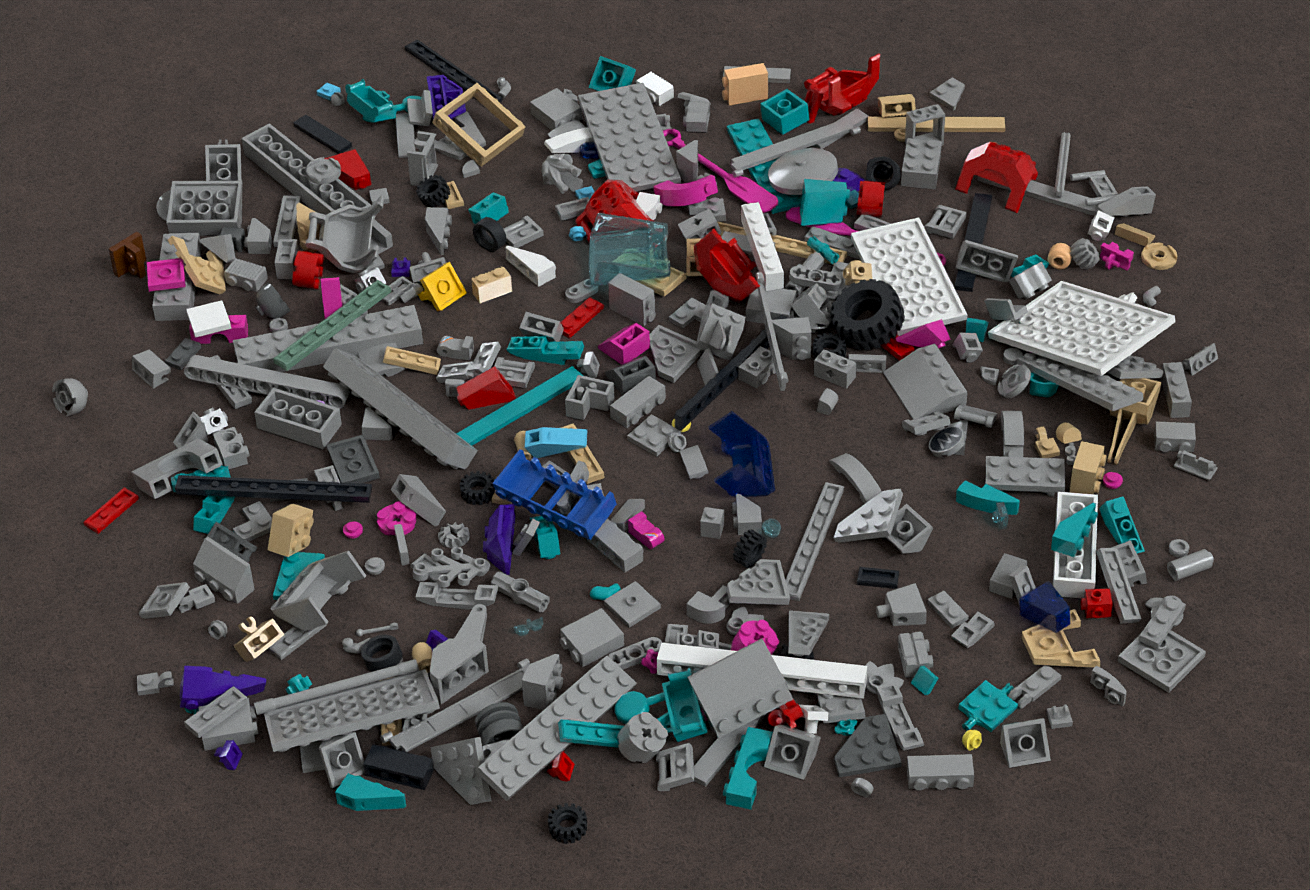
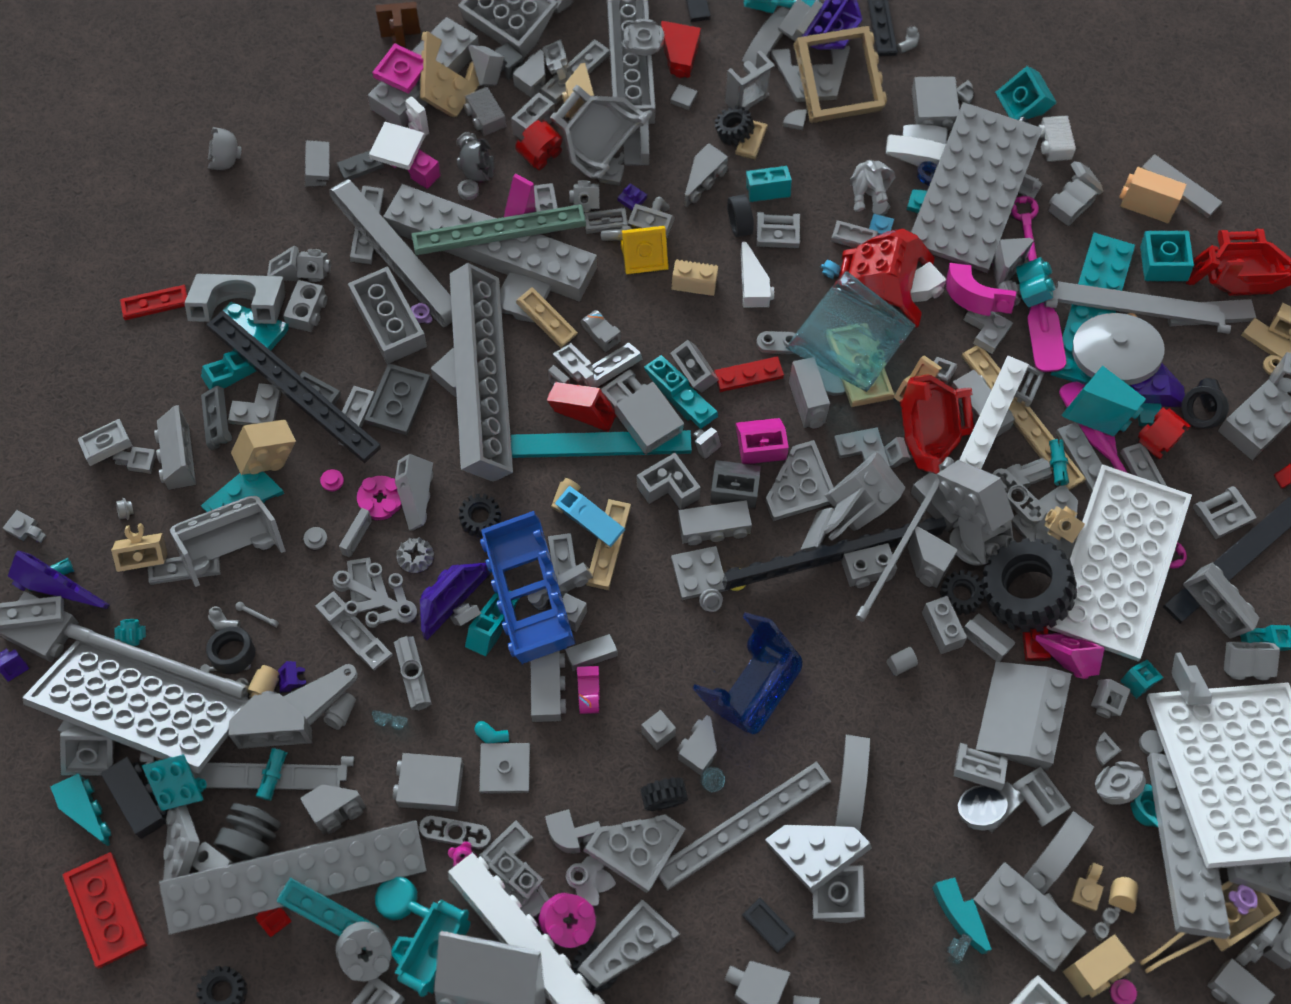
camera: 35 degrees right, 20 degrees up
(201, 295) = (417, 116): none -> white plate
(248, 298) = (465, 138): none -> light grey plate
(269, 218) = (556, 59): none -> light grey hinge
(424, 727) = (174, 782): none -> teal hinge
(441, 835) = (104, 910): none -> red plate
(482, 693) = (271, 774): none -> teal pin
(492, 641) = (339, 712): none -> light grey cone
(540, 369) = (648, 417): none -> light grey brick
(694, 462) = (706, 637): light grey slope -> none
(699, 225) = (954, 346): light grey brick -> none
(718, 165) = (1035, 281): none -> teal brick
(793, 279) = (975, 495): none -> light grey brick
(1135, 381) = (1243, 899): none -> lavender plate
(1164, 396) = (1254, 949): none -> light grey wing

